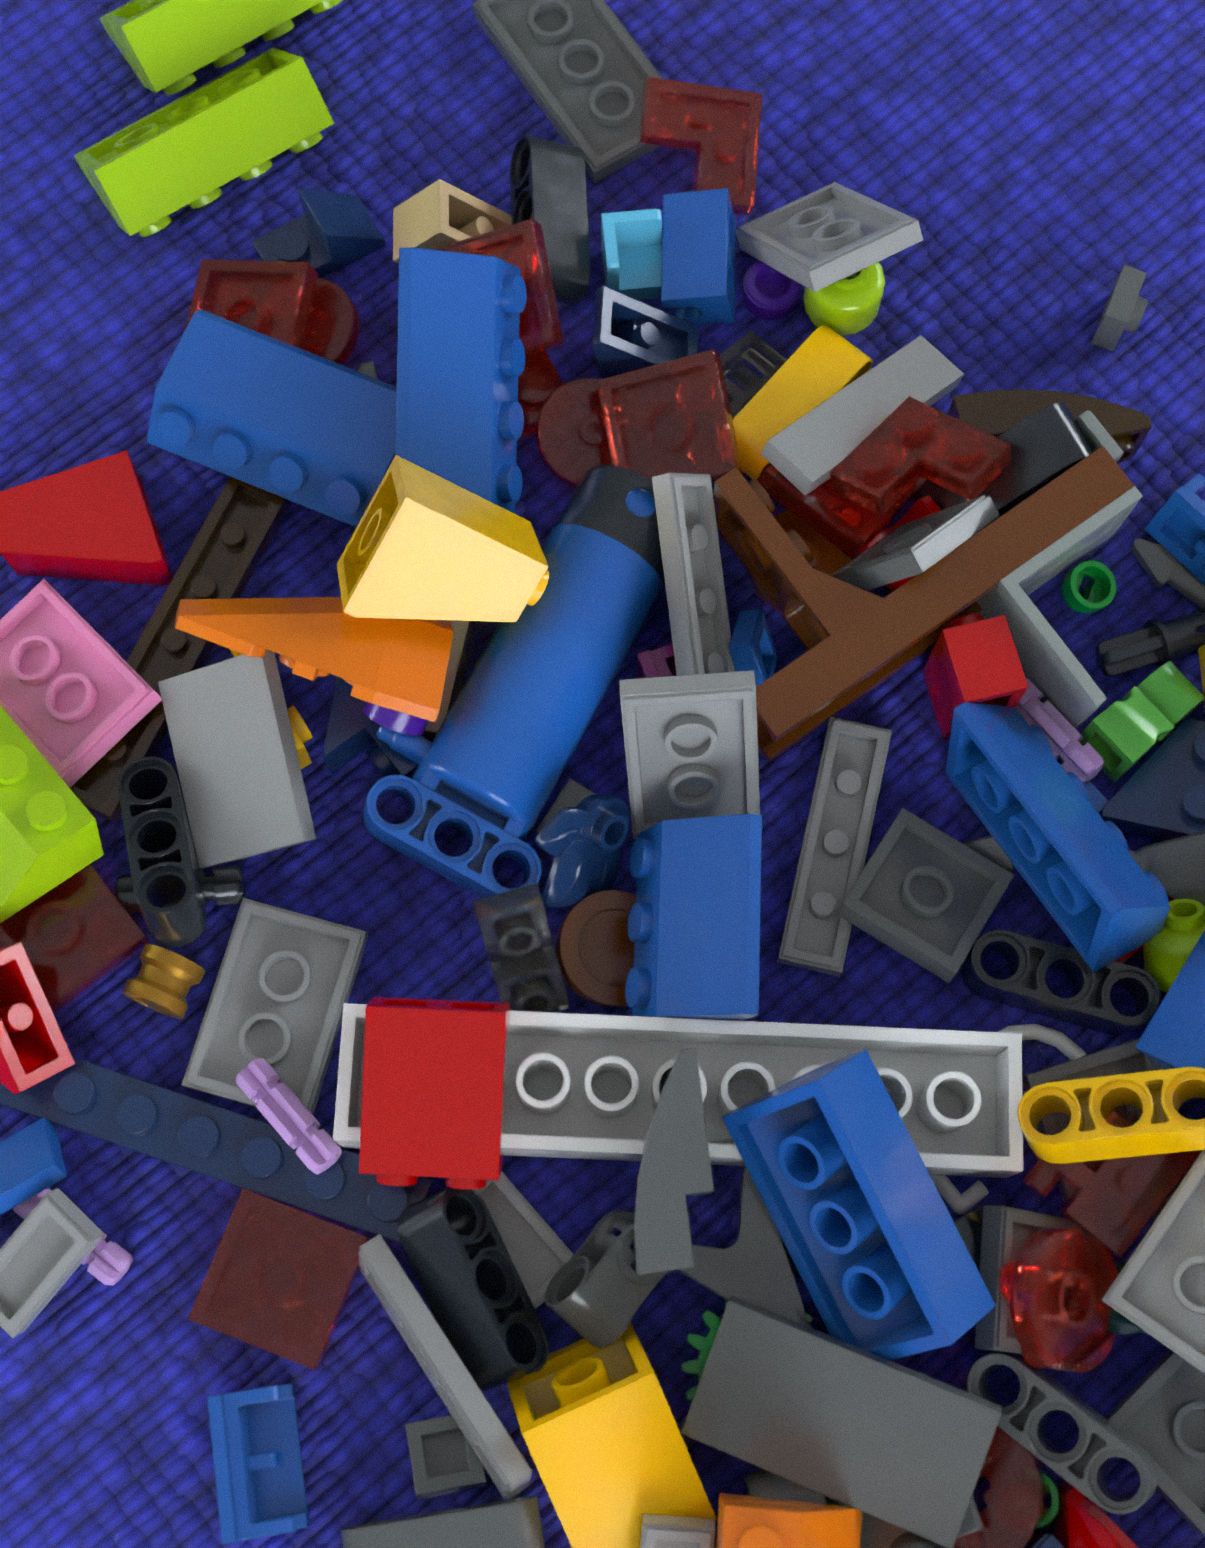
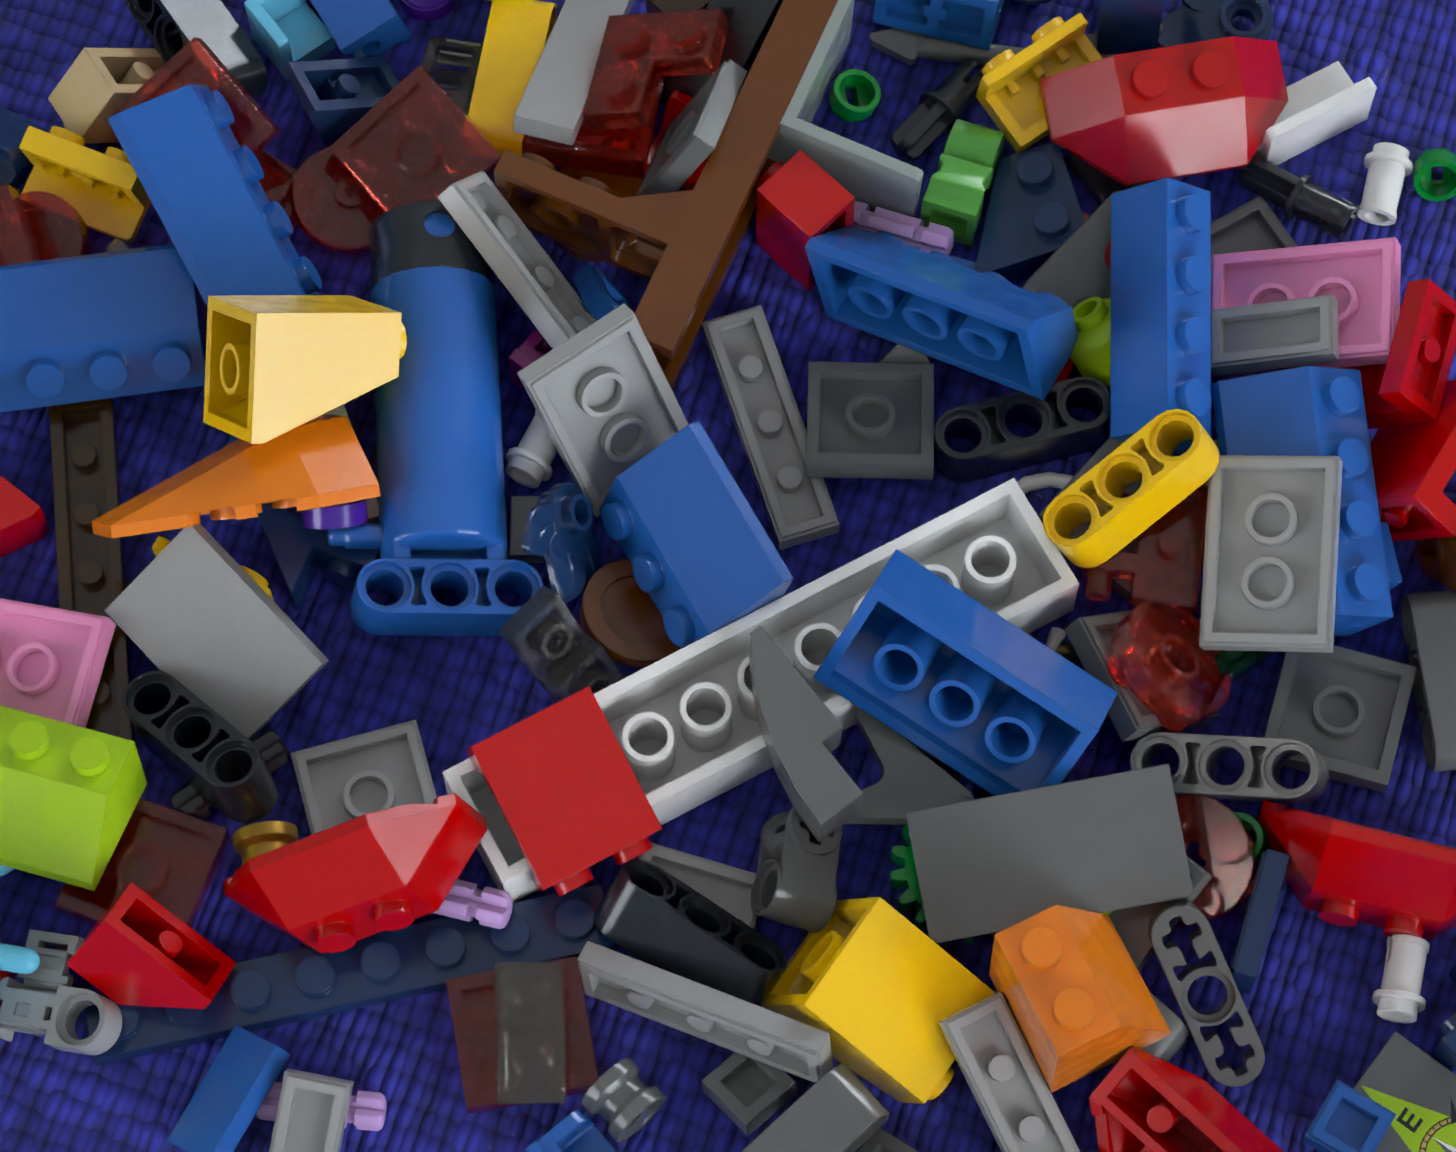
camera: 30 degrees left, 5 degrees down
(216, 1062) = (361, 873): none -> red wedge
(275, 1290) = (529, 1032): none -> clear smoke slope
(328, 1396) = (623, 1100): none -> dark grey wheel
(372, 289) = (94, 183): none -> yellow bracket
(605, 755) = (532, 458): none -> white pin

